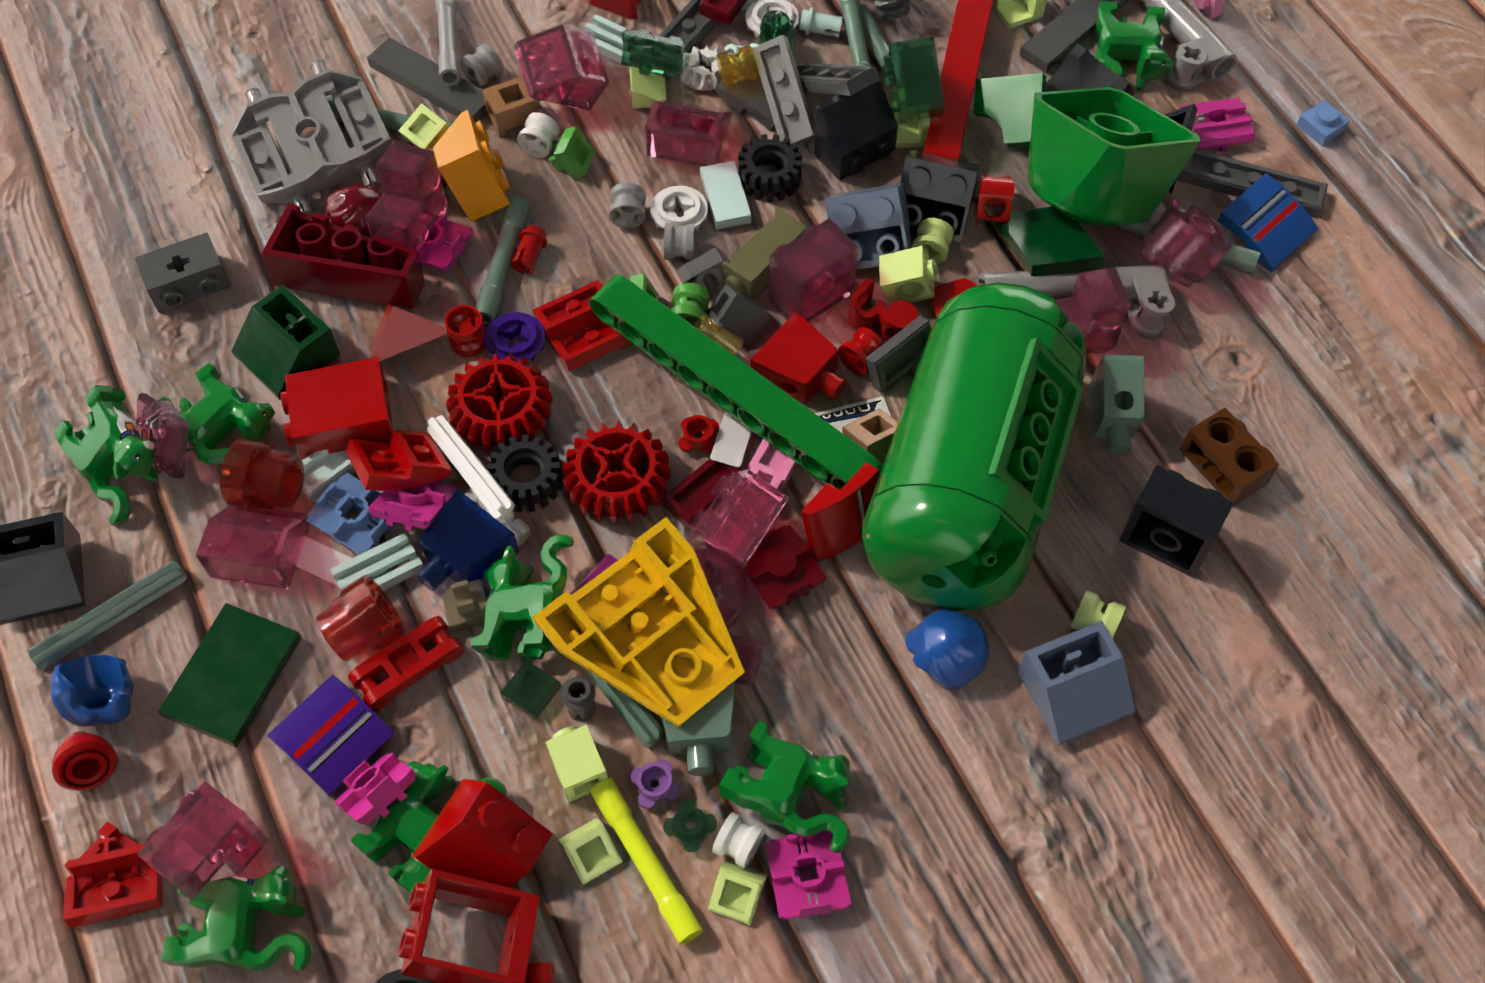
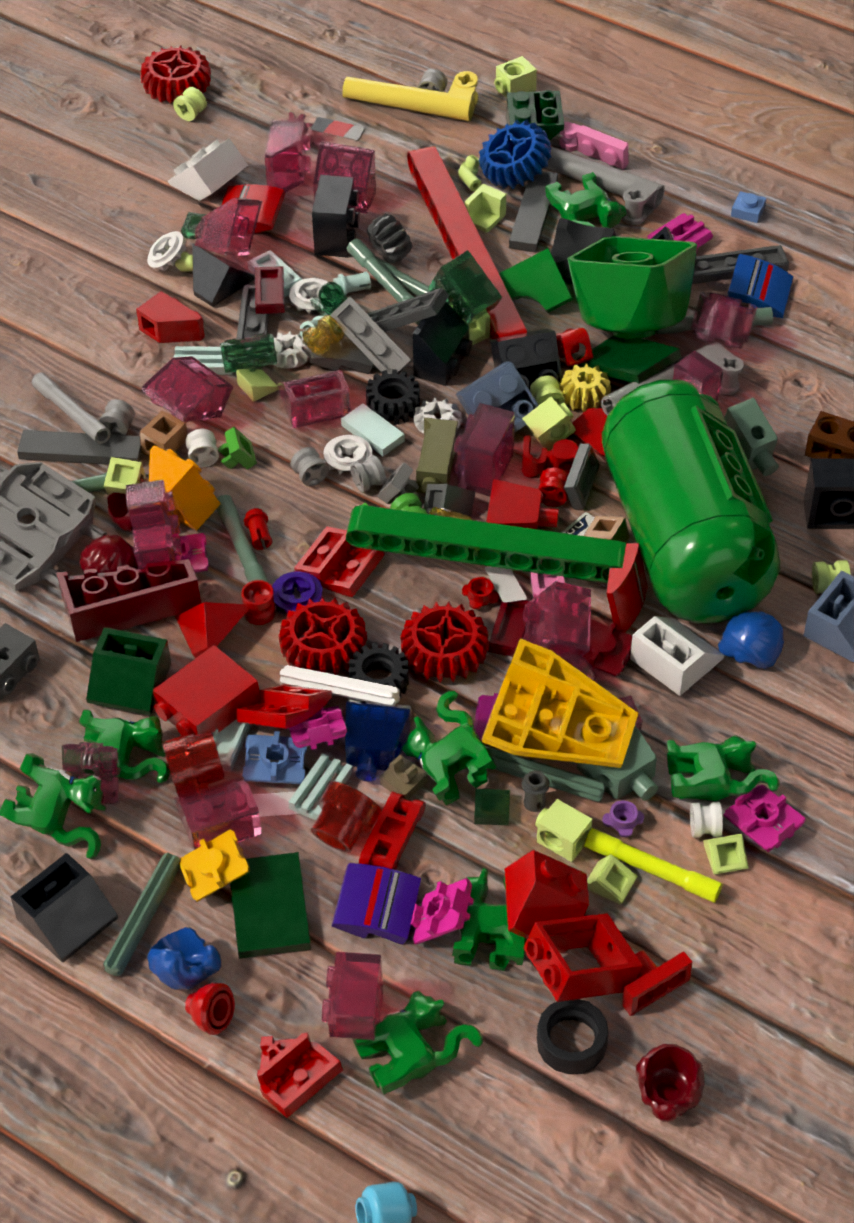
camera: 30 degrees left, 10 degrees down
(203, 601) = (213, 865): none -> yellow piece
(690, 838) = (665, 838): clear green plate -> none
(794, 201) = (427, 409): none -> white gear
(851, 615) = (673, 653): none -> white slope
(979, 251) = (584, 387): none -> light yellow gear

